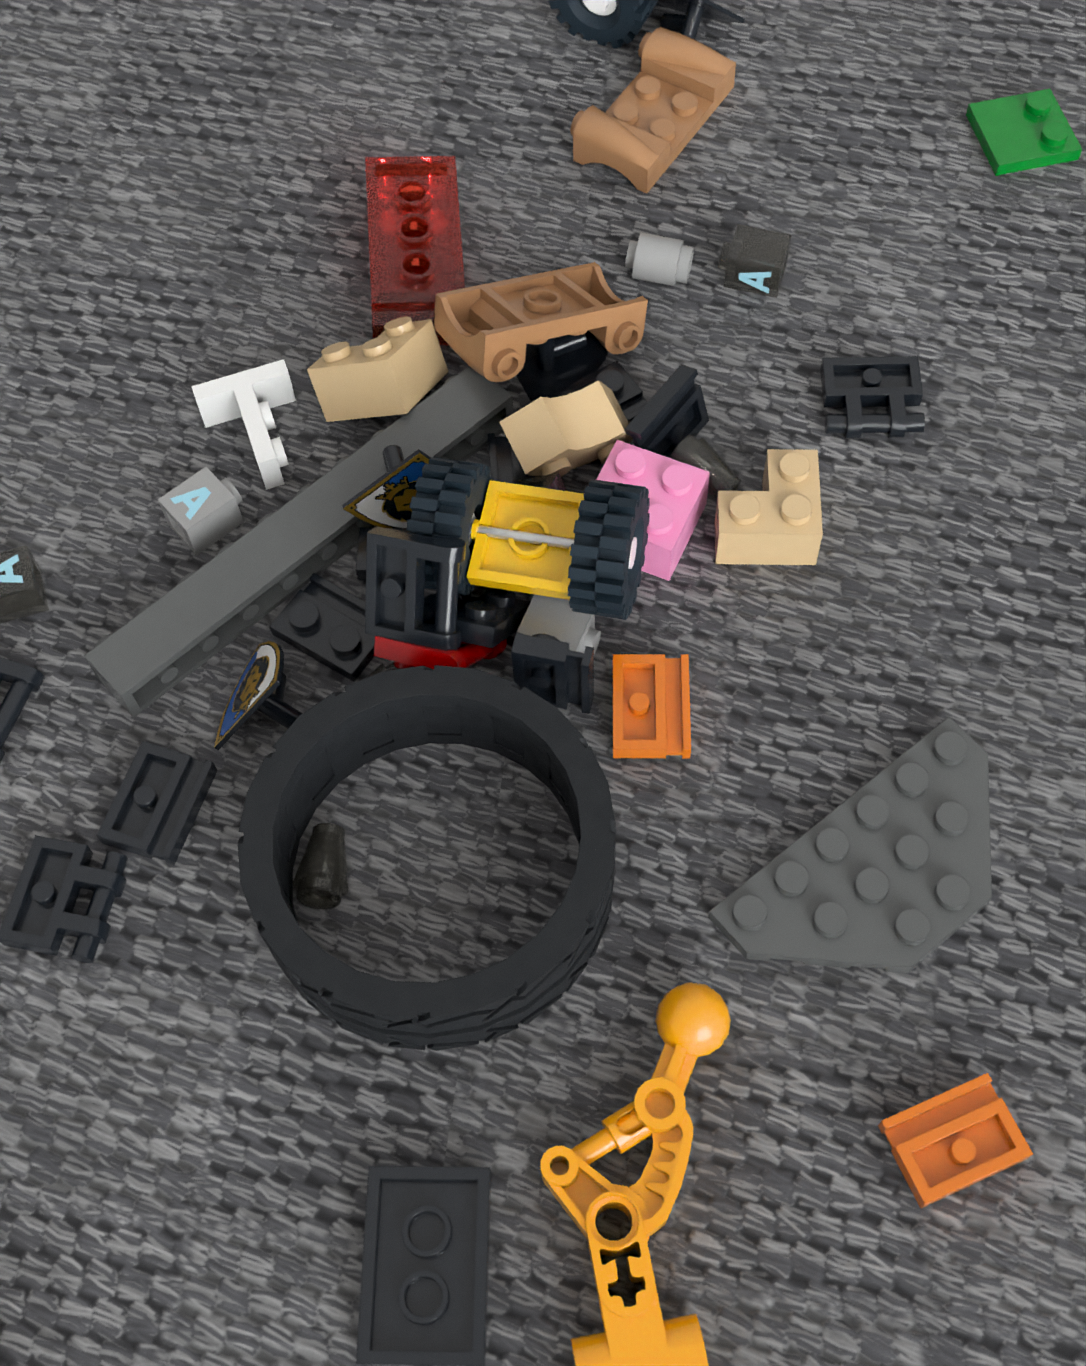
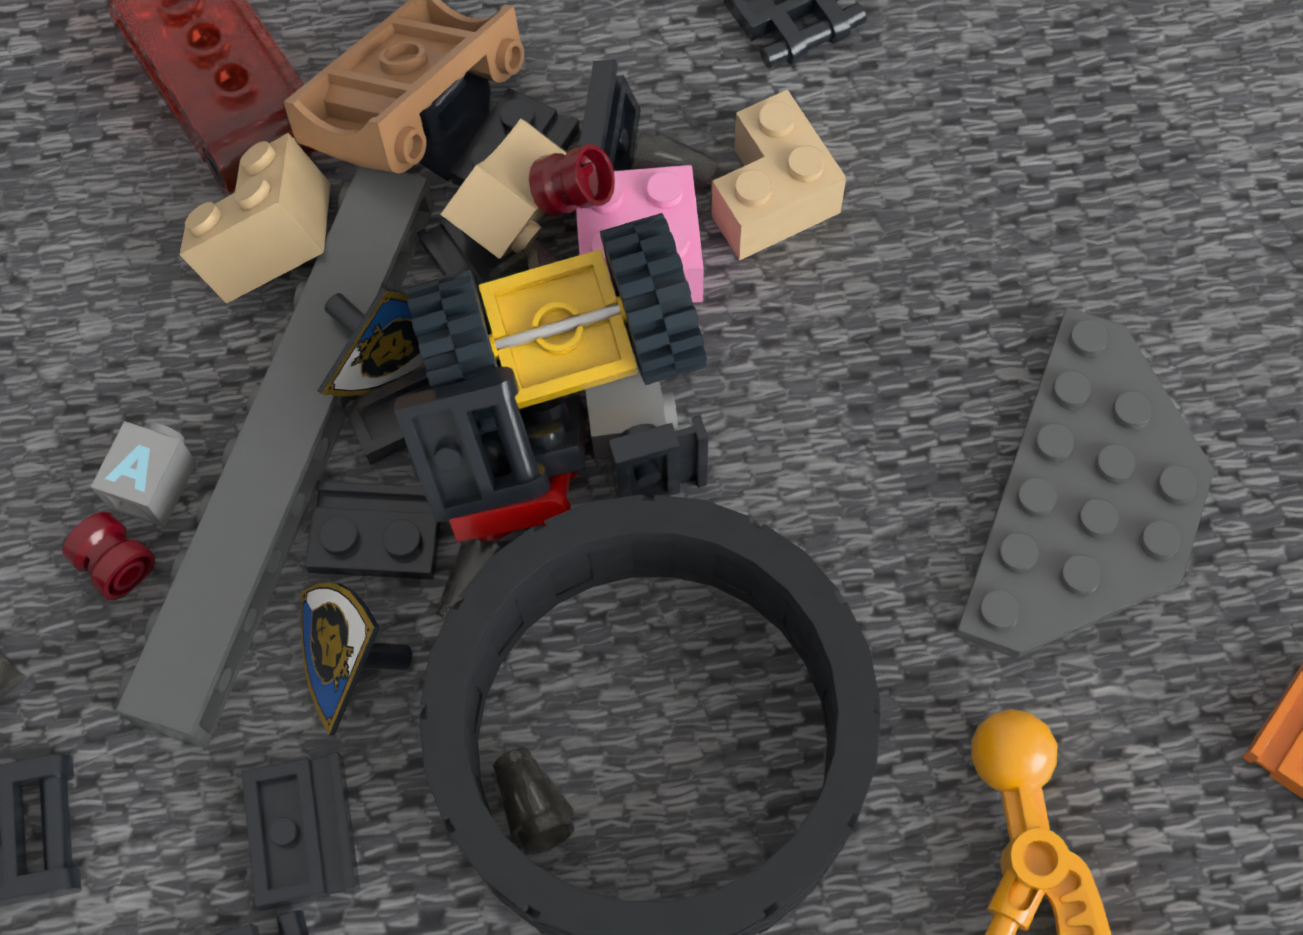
camera: 30 degrees left, 5 degrees up
(145, 553) = (105, 552): none -> dark red wheel
(251, 396) = (124, 316): white bracket -> none
(606, 439) = (562, 184): none -> dark red wheel
(651, 706) = (770, 445): orange plate -> none

